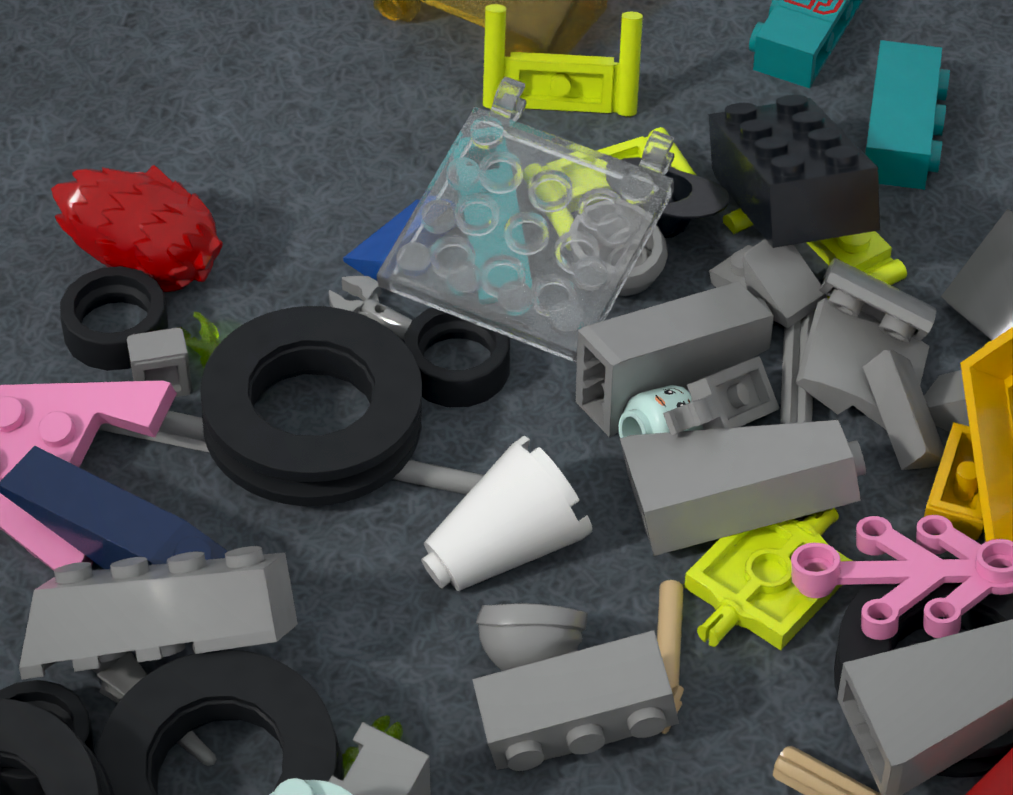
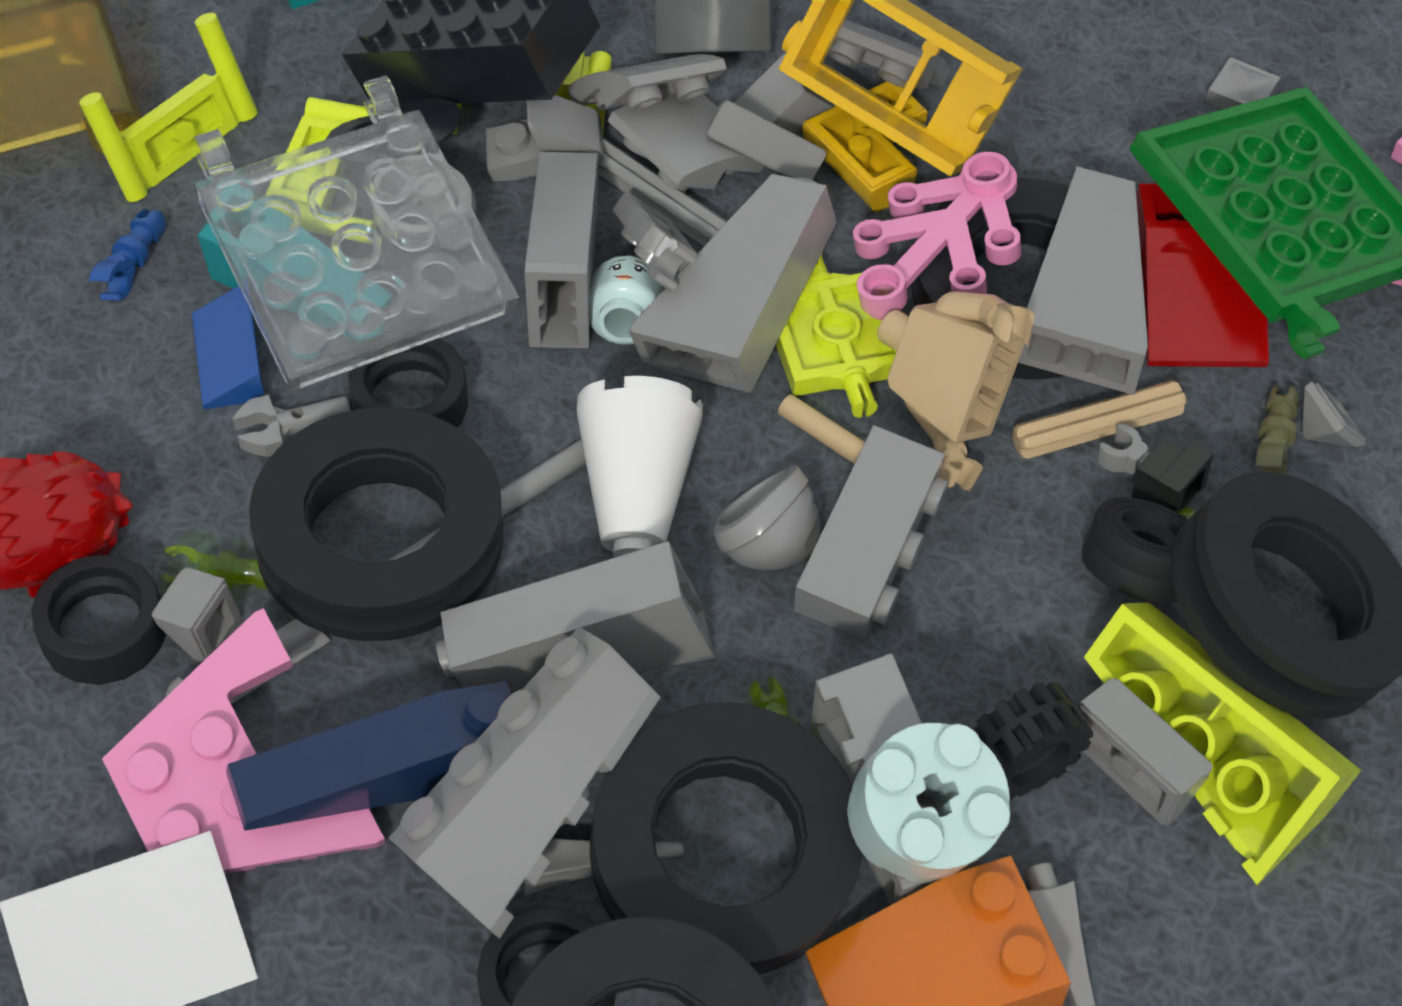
camera: 55 degrees left, 5 degrees up
(341, 581) = (631, 602): none -> light grey slope
(416, 136) = (128, 253): none -> blue piece
(776, 666) = (956, 369): none -> tan torso

